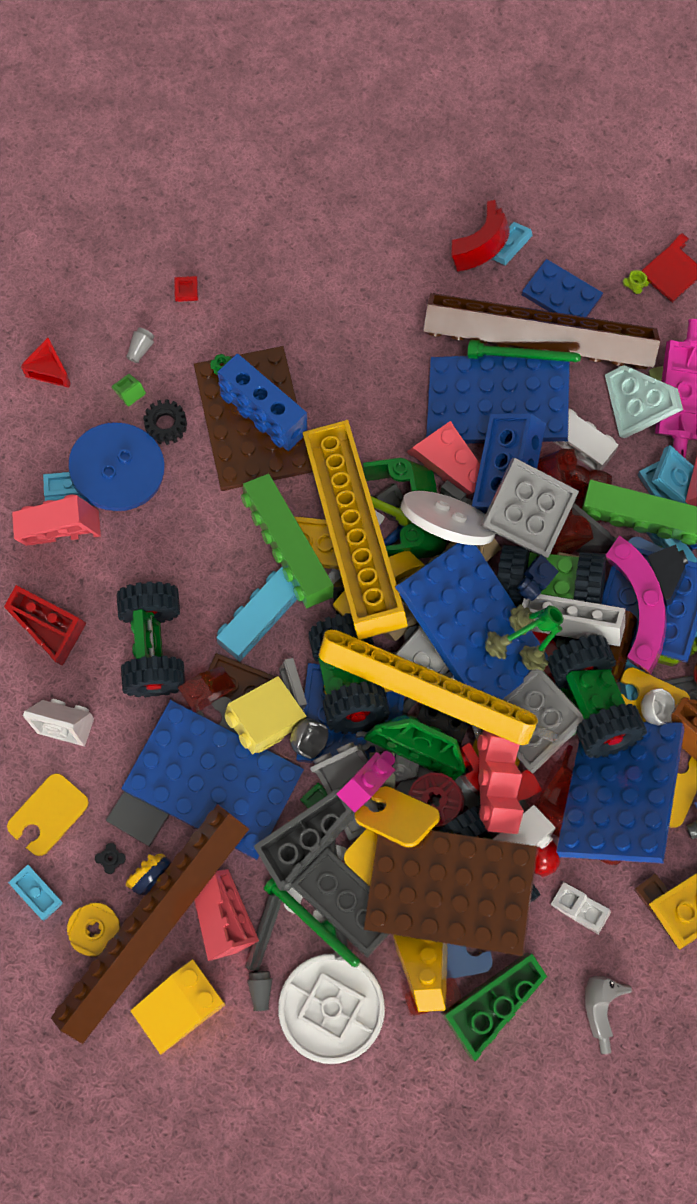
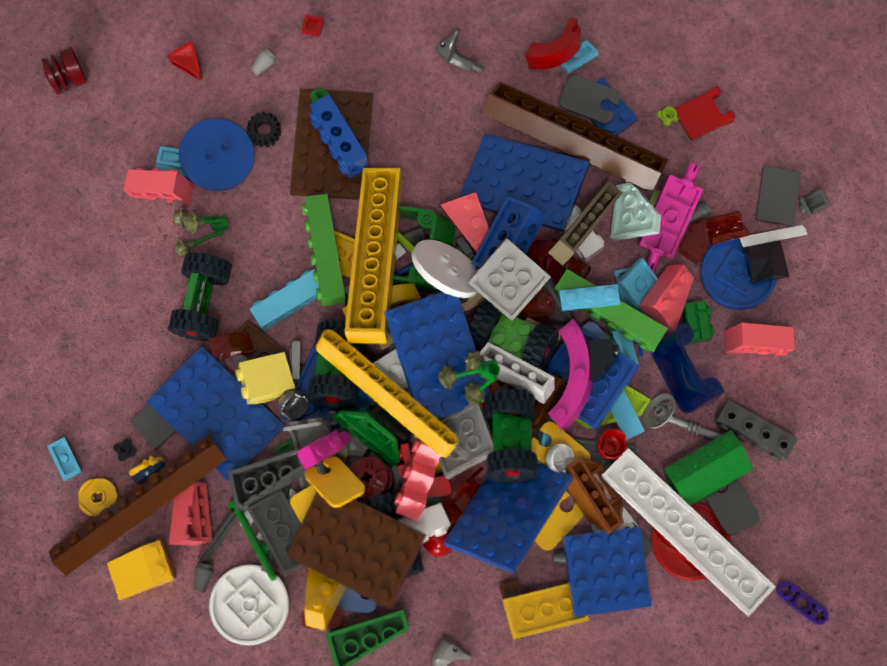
camera: 20 degrees right, 5 degrees up
(48, 624) = (129, 262): red wedge -> none
(51, 808) = (94, 401): yellow piece -> none
(60, 721) = (117, 338): white slope -> none
(114, 554) = (191, 223): none -> olive plant
(129, 389) = (244, 95): bright green slope -> none
(357, 275) = (448, 51): none -> dark grey animal
(478, 349) = (519, 139): green piece -> none
(536, 284) = (584, 99): none -> dark grey piece
(537, 578) = (501, 332): dark blue plate -> none
(581, 908) = (454, 588): white slope -> none
(592, 422) = (585, 223): none -> dark tan brick
(629, 505) = (589, 297): none -> medium azure plate

